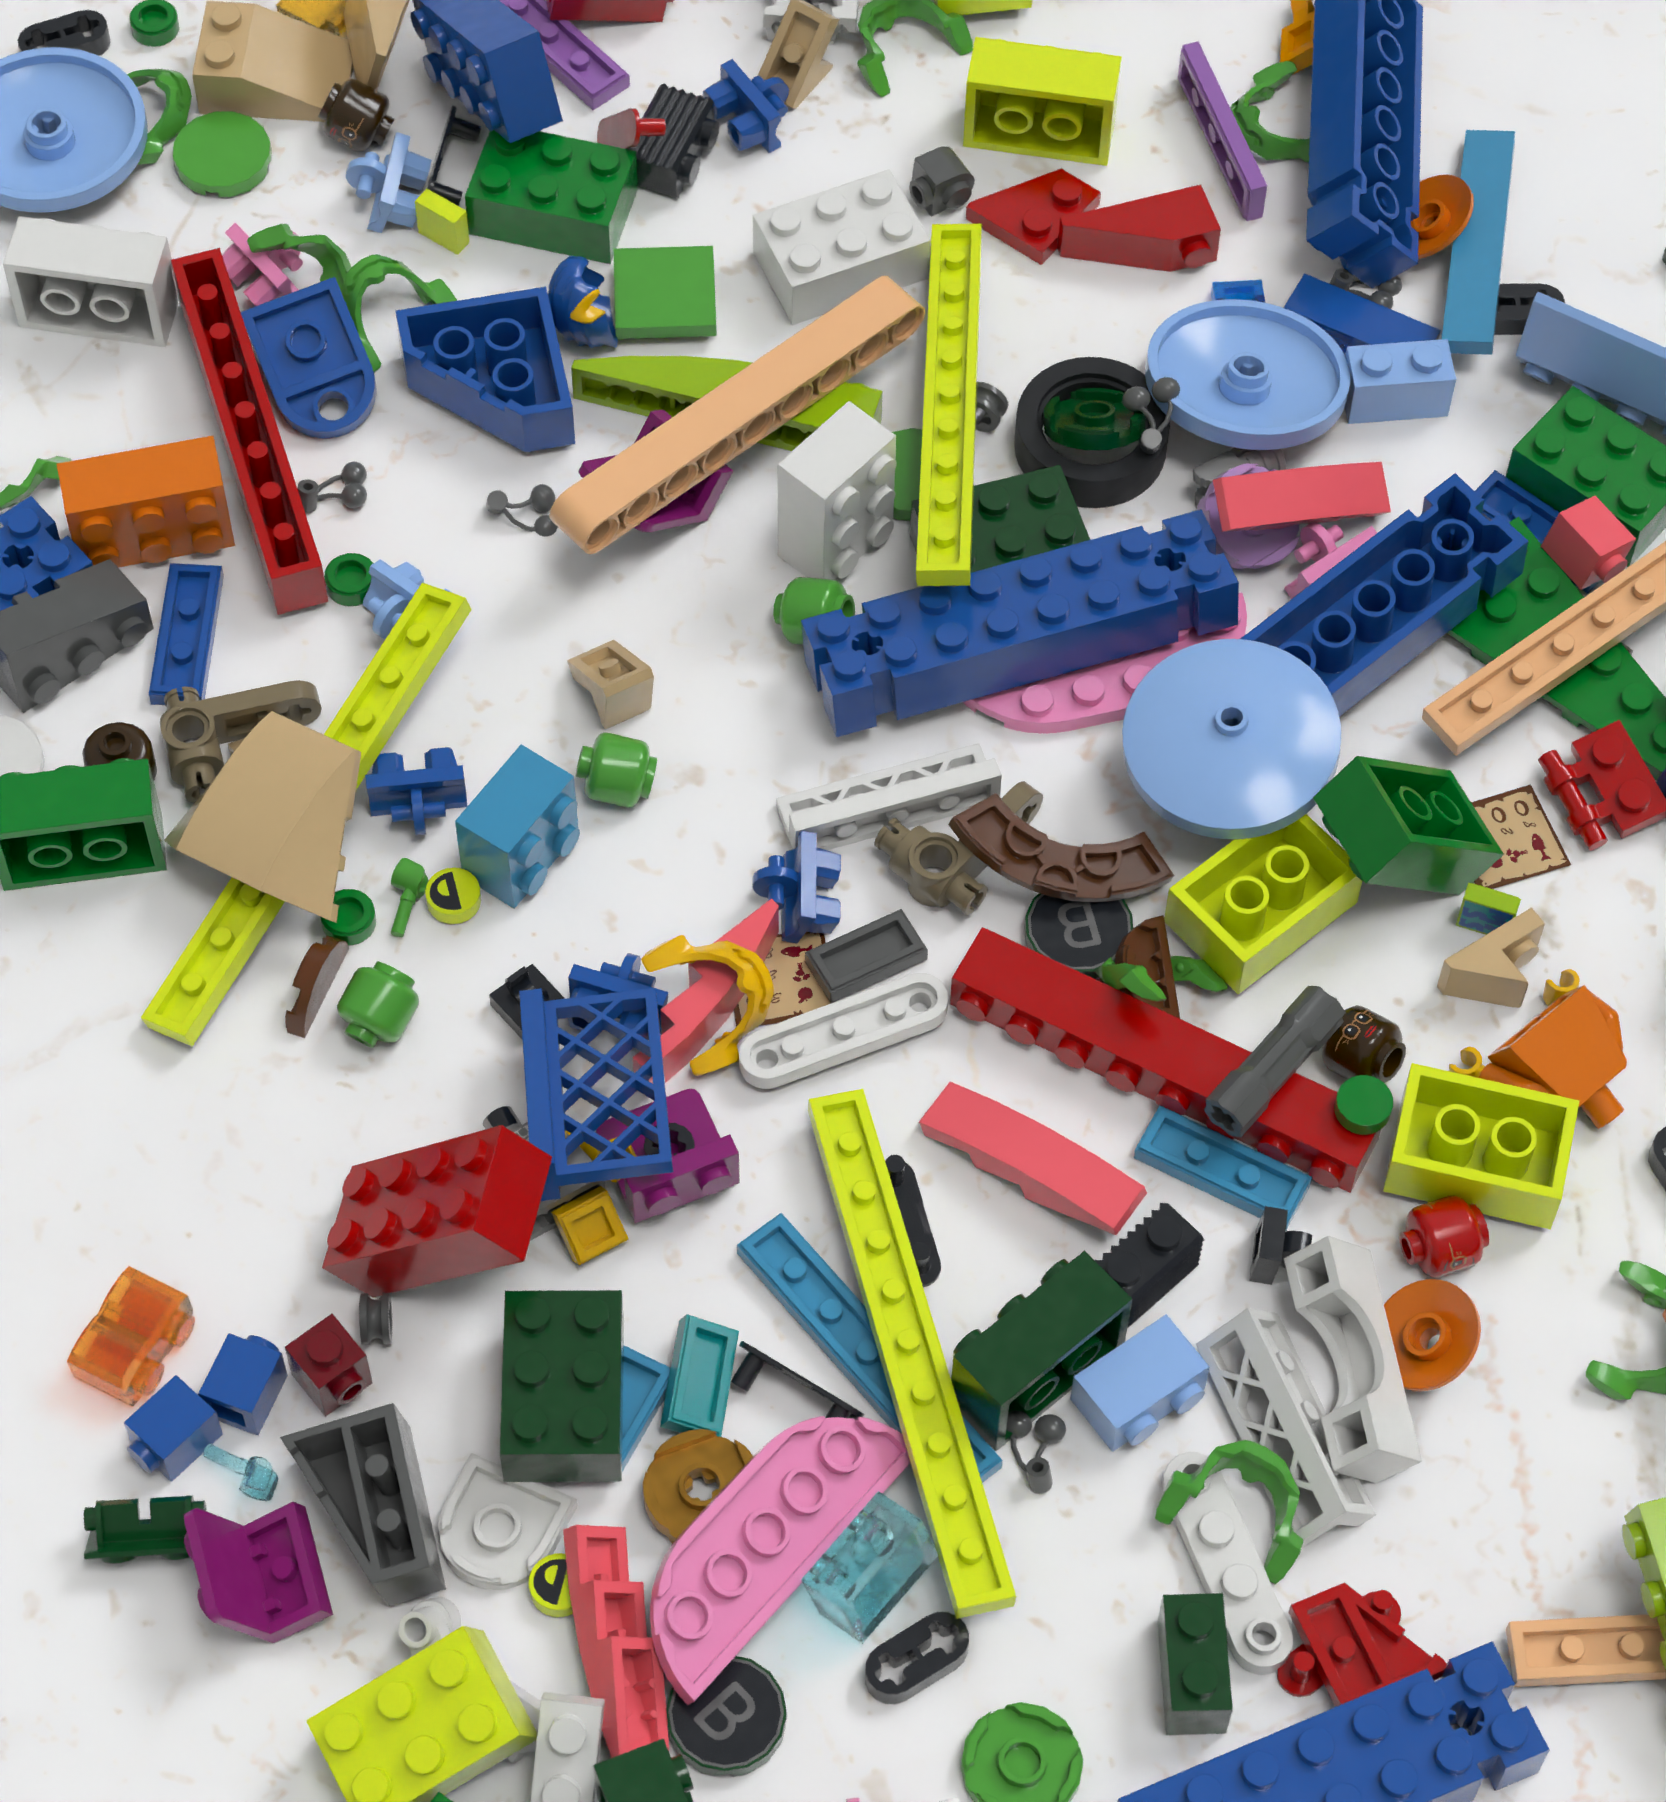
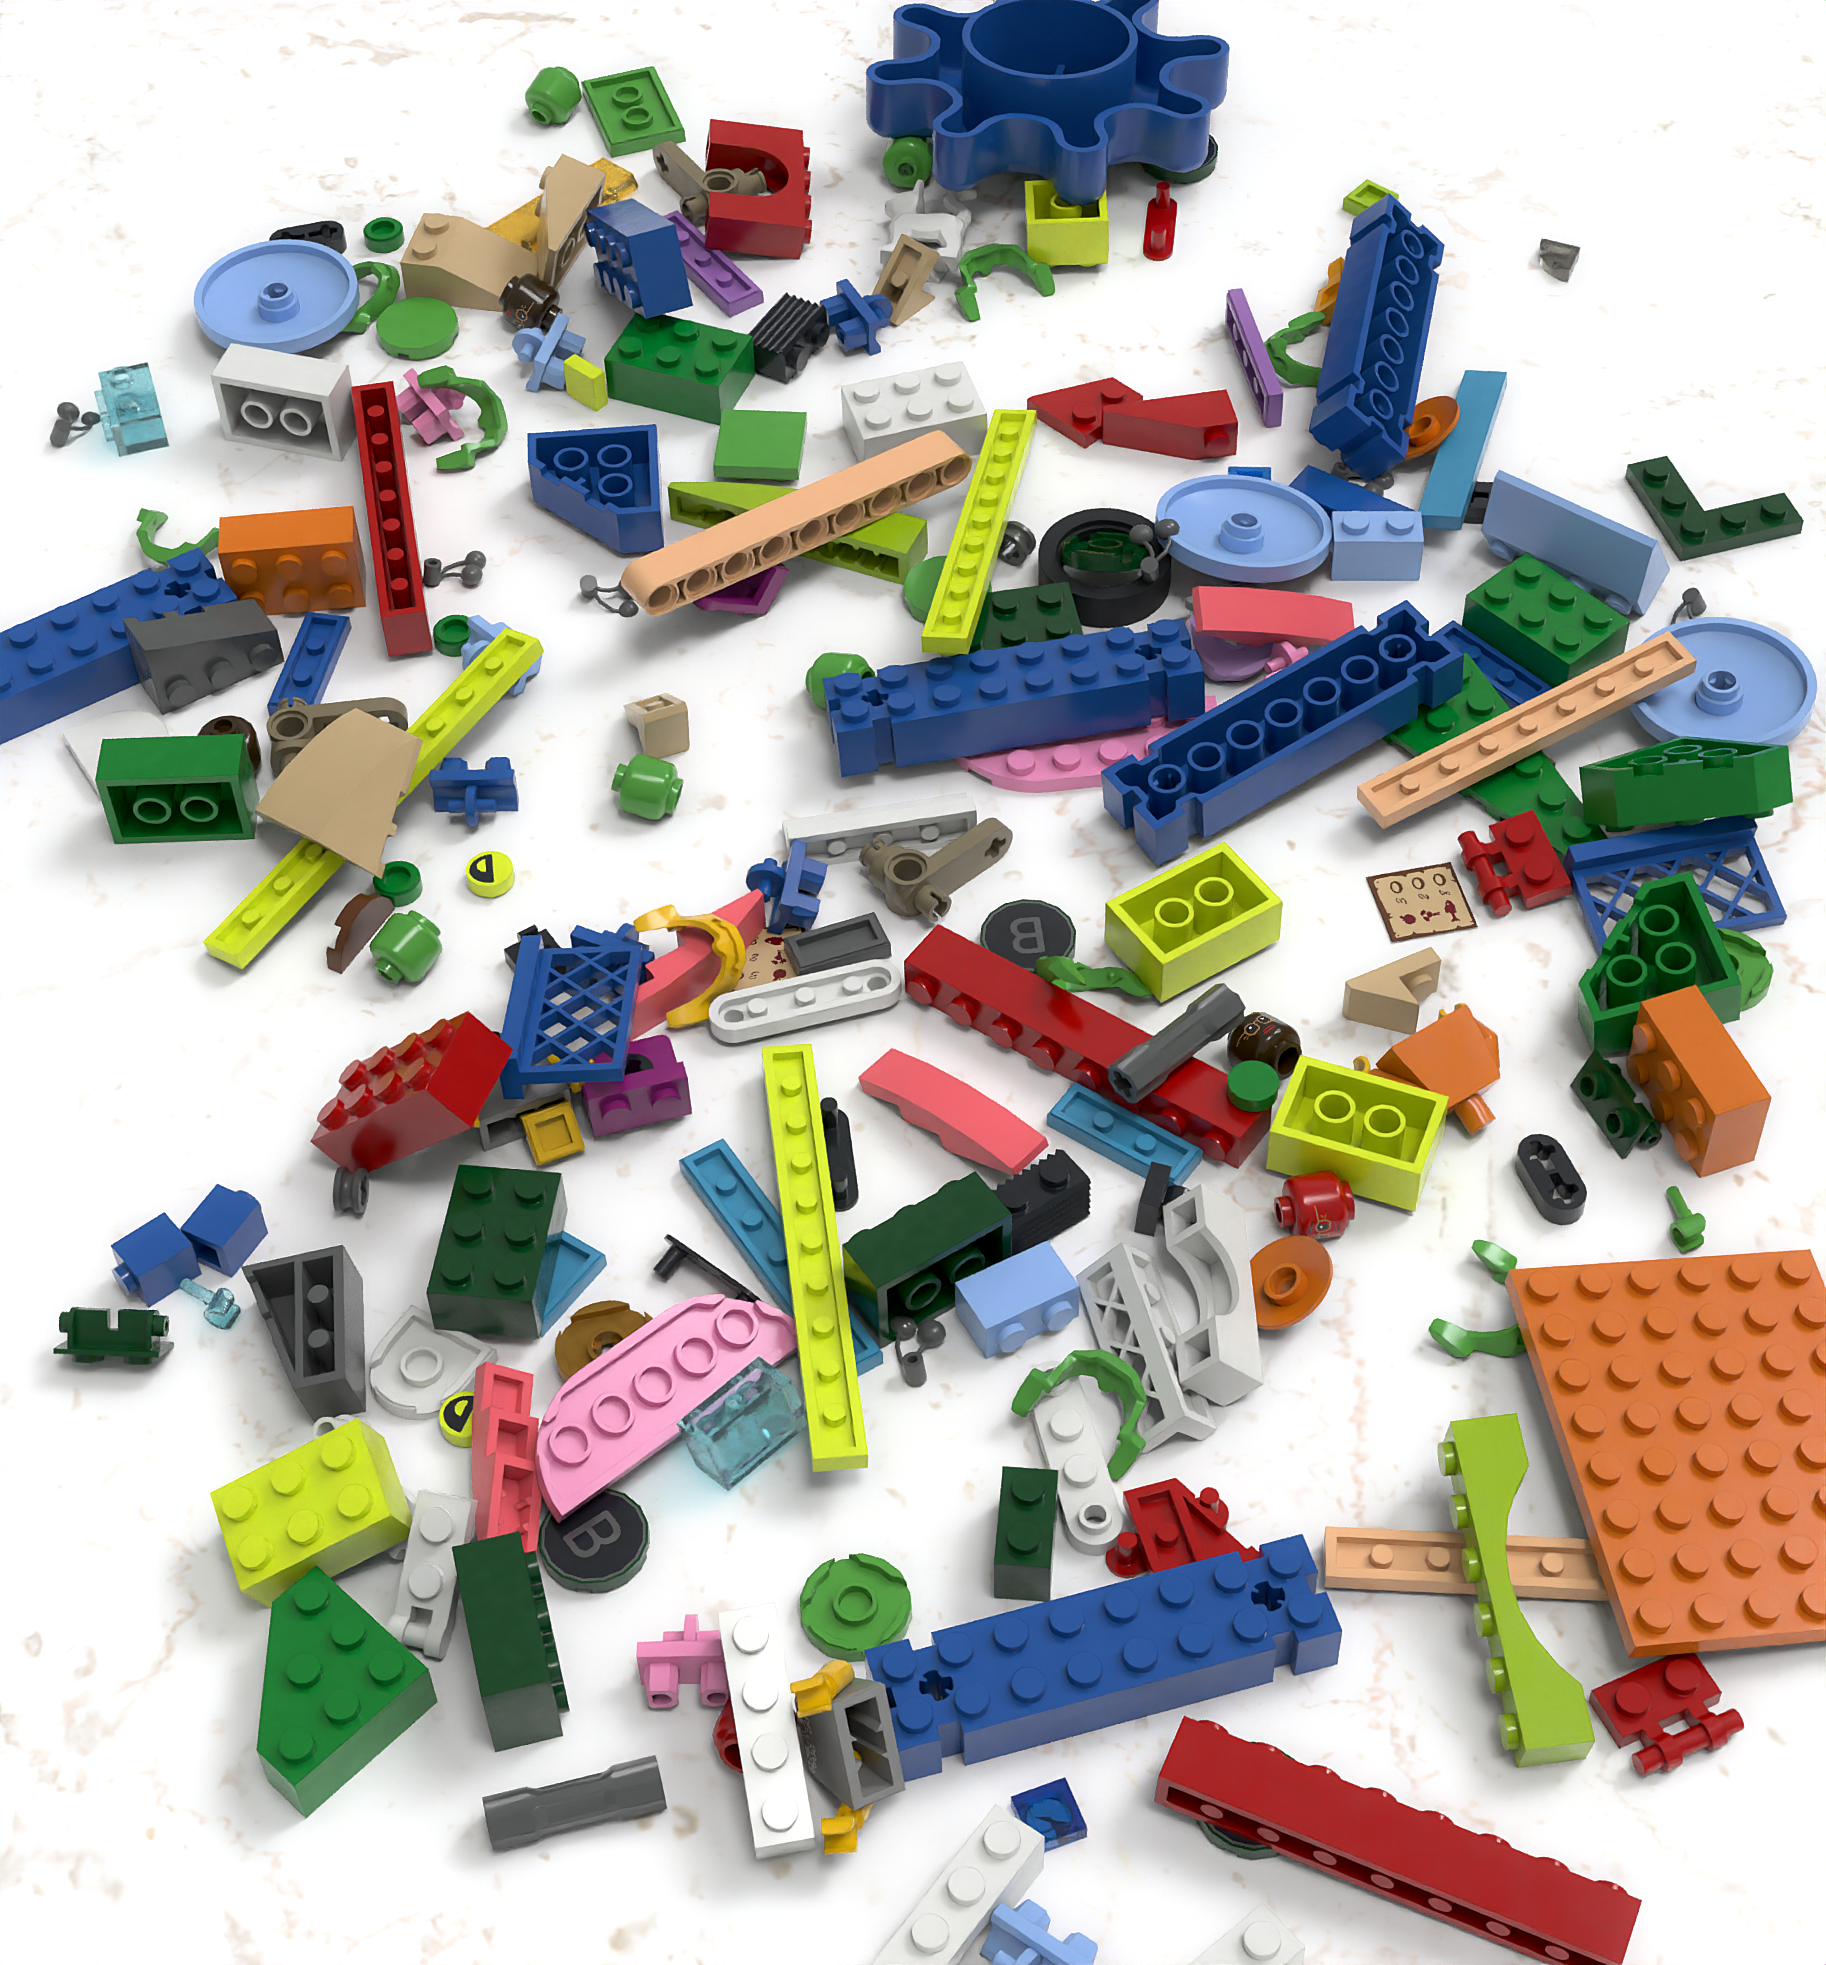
camera: 10 degrees right, 10 degrees down
(132, 1336) = (136, 1183): clear orange brick -> none
(258, 1574) = (197, 1385): magenta bracket -> none
(311, 357) = (456, 467): blue plate -> none
(328, 1365) = (300, 1217): dark red brick -> none
(373, 271) = (511, 409): bright green helmet -> none
(412, 880) = (455, 858): bright green hand -> none
(460, 128) = (608, 317): black piece -> none
(518, 826) = (551, 817): dark azure brick -> none
(578, 306) = (683, 445): blue hair -> none
(626, 127) = (749, 313): piece -> none
(699, 1376) = (625, 1259): teal tile -> none
(836, 495) = (870, 585): white brick -> none
(909, 1646) = (775, 1508): black beam -> none
(940, 181) = (1007, 379): dark grey plate -> none
(1041, 101) = (1100, 322): neon yellow brick -> none
(1054, 868) = (1028, 892): reddish brown tile -> none
(1149, 947) = (1086, 953): reddish brown tile -> none
(1231, 738) = (1179, 790): light blue dish -> none
(1407, 826) = (1325, 870): green brick -> none
(1486, 909) = (1390, 945): tile -> none
(1588, 543) = (1522, 669): coral brick -> none

